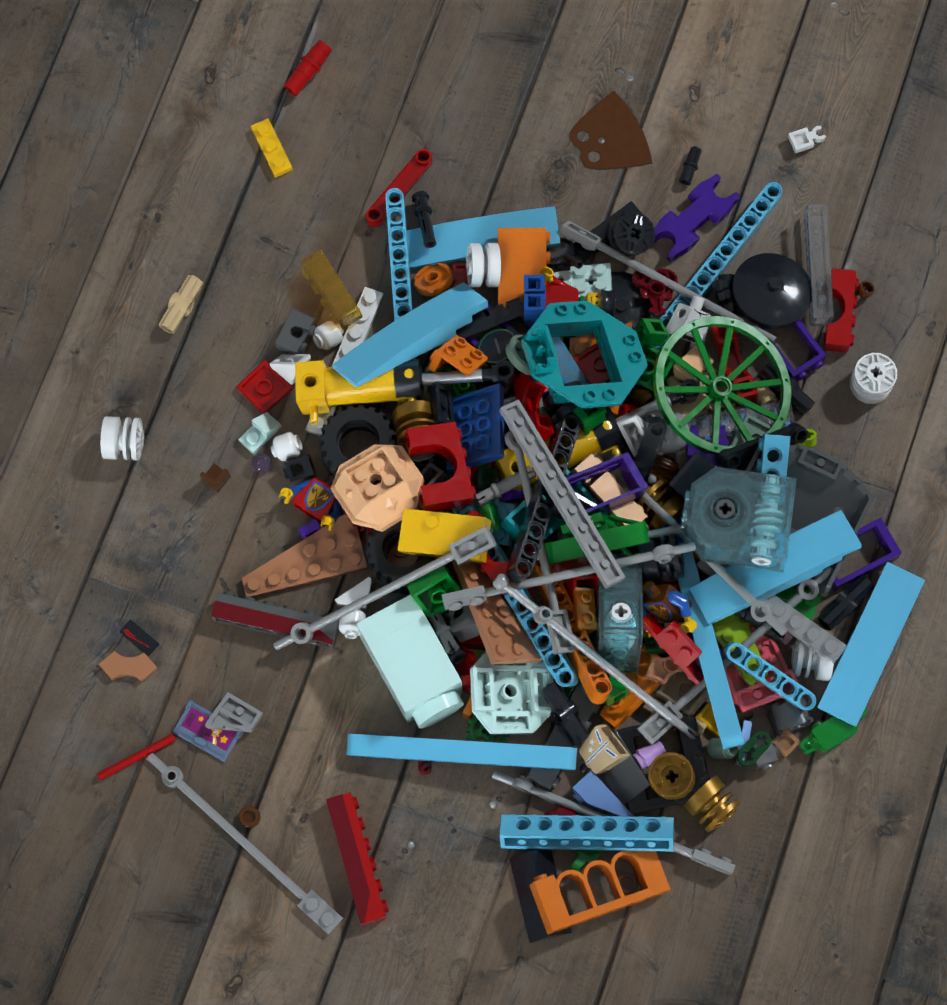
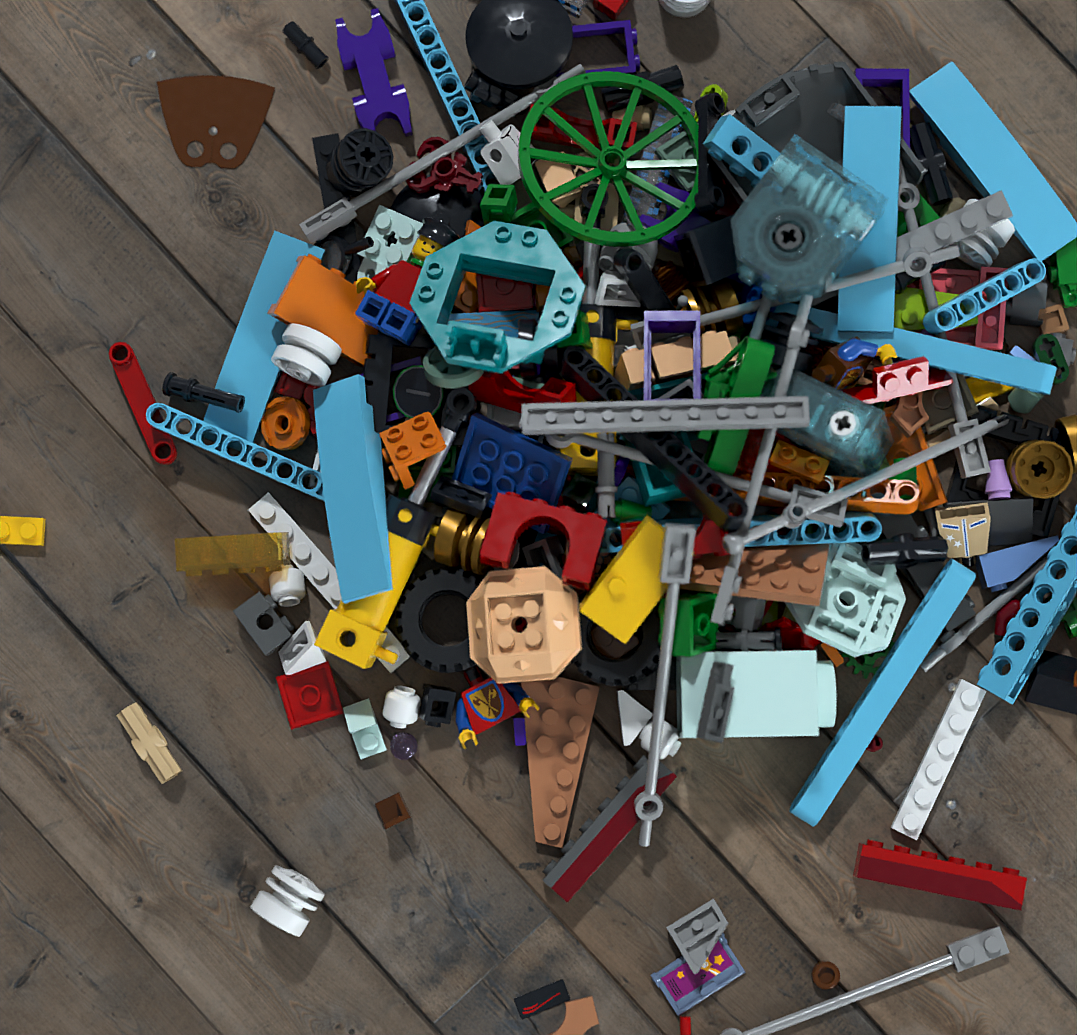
camera: 65 degrees left, 10 degrees up
(389, 631) = (716, 703): none -> dark grey hinge
(436, 818) = (938, 759): none -> white plate

